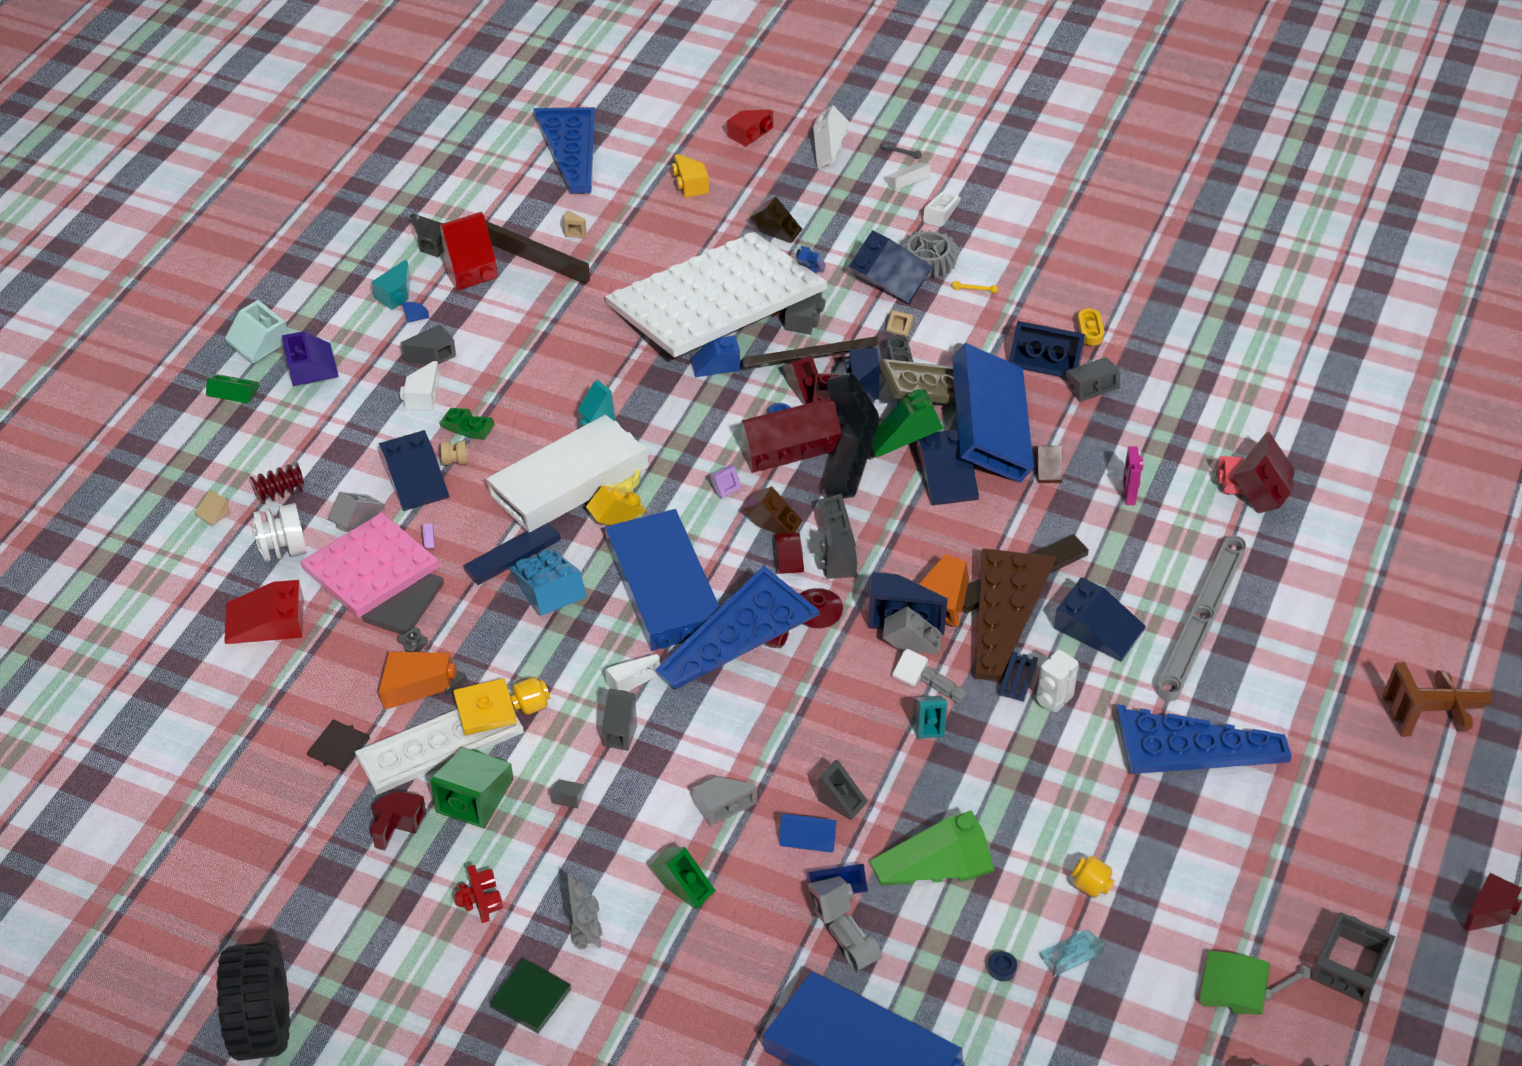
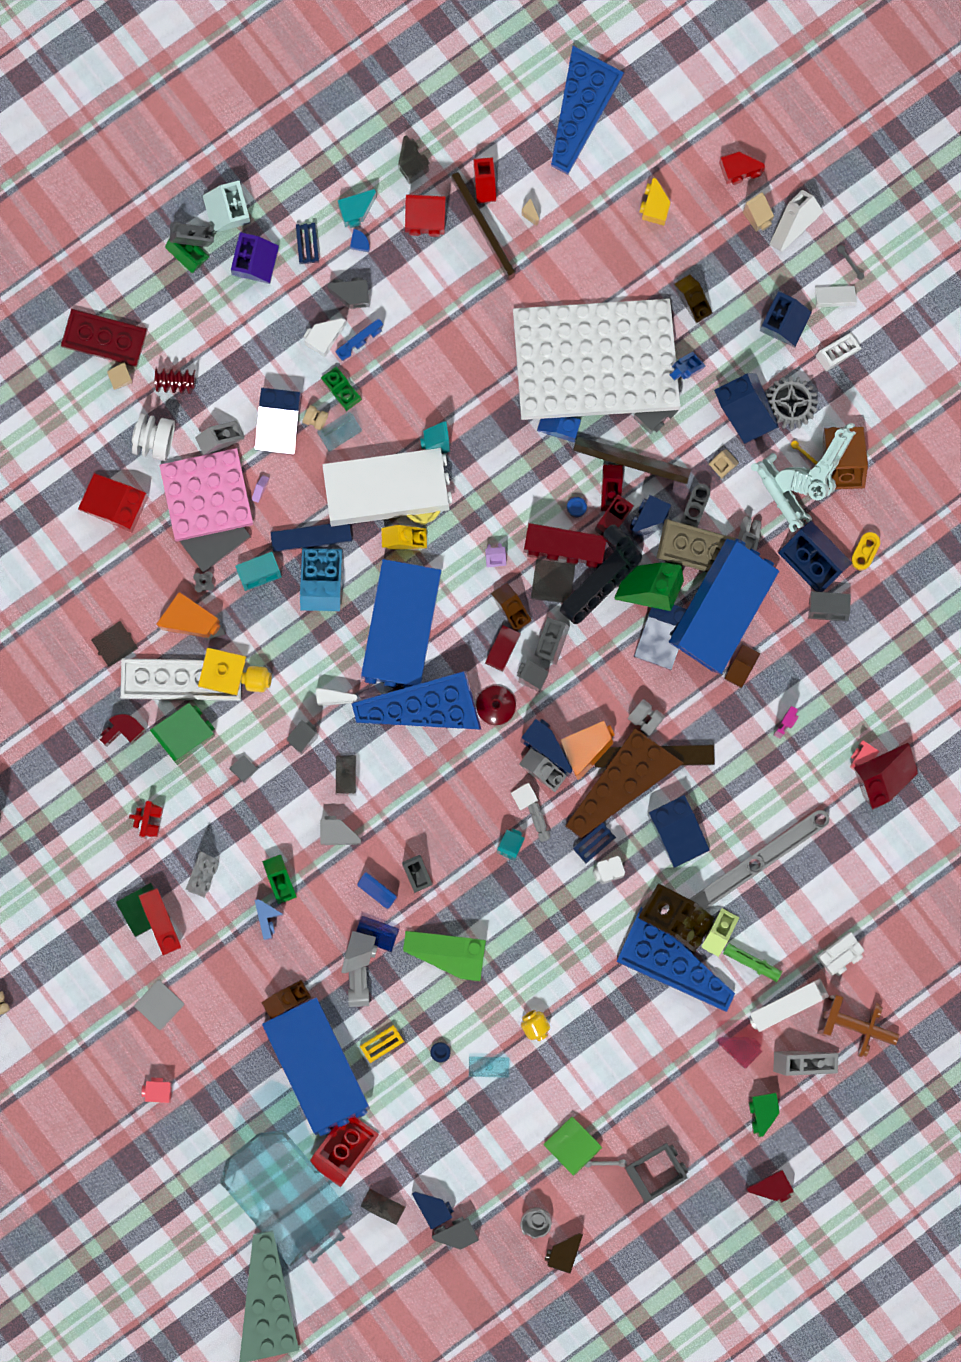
camera: 25 degrees right, 35 degrees up
(175, 487) = (104, 337): none -> dark red tile
(229, 367) = (191, 234): none -> dark grey hinge
(365, 327) = (305, 227): none -> dark blue tile
(462, 375) = (358, 340): none -> blue hinge
(471, 603) = (258, 571): none -> teal hinge
(487, 457) = (339, 431): none -> clear light blue slope
(510, 215) = (484, 180): none -> red slope
(562, 989) = (160, 921): none -> red slope
(691, 922) = (264, 913): none -> medium blue slope
(696, 743) = (345, 775): none -> clear smoke slope
(771, 998) = (286, 999): none -> reddish brown slope
(790, 141) = (758, 212): none -> tan slope
(799, 480) = (552, 581): none -> clear smoke tile
(873, 200) = (786, 319): none -> dark blue slope
(915, 1012) = (396, 1034): none -> yellow tile
(985, 537) = (639, 714): none -> light grey wheel
(989, 282) = (803, 479): none -> light aqua piece
(1014, 268) = (853, 465): none -> dark orange slope
(1171, 680) = (683, 921): none -> dark brown bracket
(1221, 690) = (720, 932): none -> yellowish green slope
(1278, 700) = (752, 962): none -> bright green pin
(1335, 785) = (741, 1049): none -> clear pink slope
(1352, 713) = (788, 1005): none -> white slope
(1360, 647) = (840, 954): none -> white brick
(1413, 763) = (805, 1062): none -> light grey slope
(1416, 832) = (765, 1112): none -> green slope

